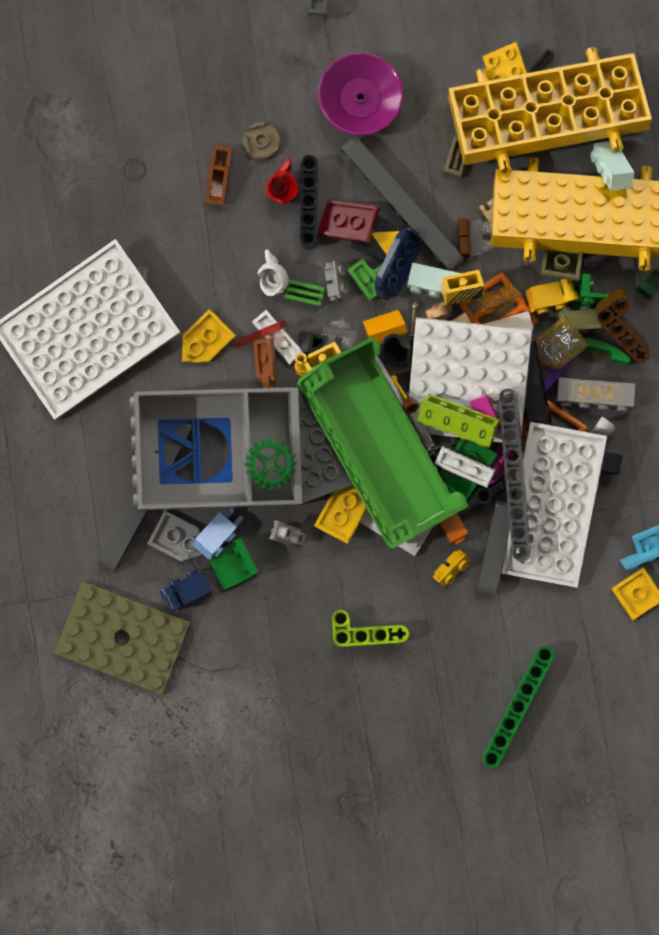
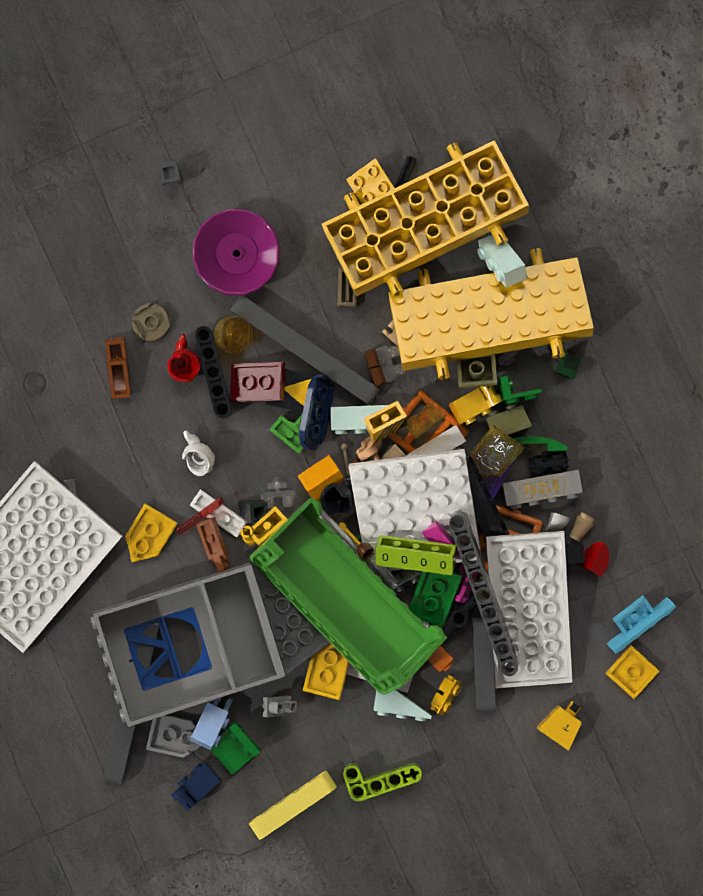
camera: 10 degrees left, 5 degrees up
(92, 631) = (177, 842): olive plate -> none
(262, 458) = (241, 657): green gear -> none
(274, 634) = (292, 805): none -> light yellow beam
(303, 300) = (249, 462): bright green tile -> none
(337, 170) = (233, 334): none -> clear yellow cylinder
(338, 289) = (264, 451): light grey hinge -> none
(401, 562) = (399, 704): none -> light aqua slope
(464, 466) = (433, 596): white tile -> none
(518, 716) = (545, 822): green beam -> none
(556, 626) = (561, 724): none -> yellow torso
(600, 370) = (557, 460): none -> black hinge
(624, 440) = (581, 526): none -> tan cone
(625, 330) = (538, 412): reddish brown beam -> none
(630, 475) = (596, 558): none -> red brick

